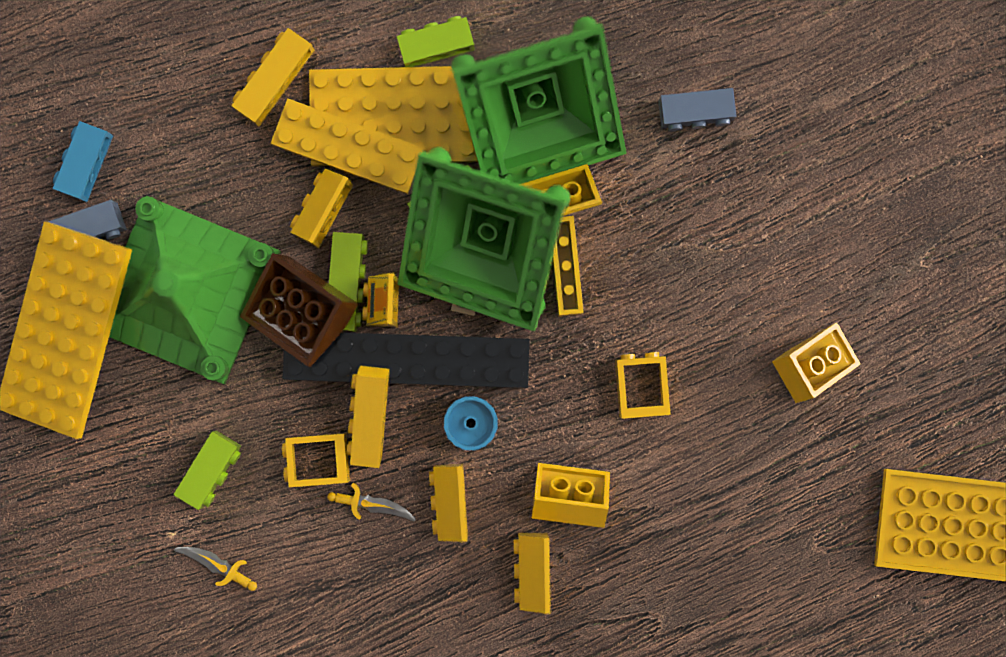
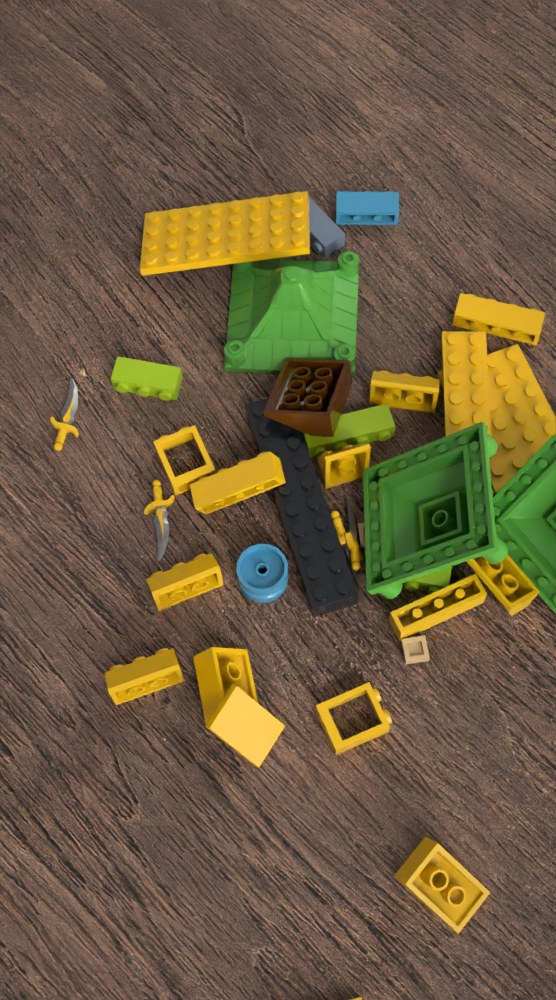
camera: 80 degrees right, 20 degrees down
(457, 330) = (341, 535): none -> piece
(466, 322) = (352, 541): none -> yellow piece
(596, 303) = (415, 649): none -> tan plate
(619, 491) = (245, 725): none -> yellow tile

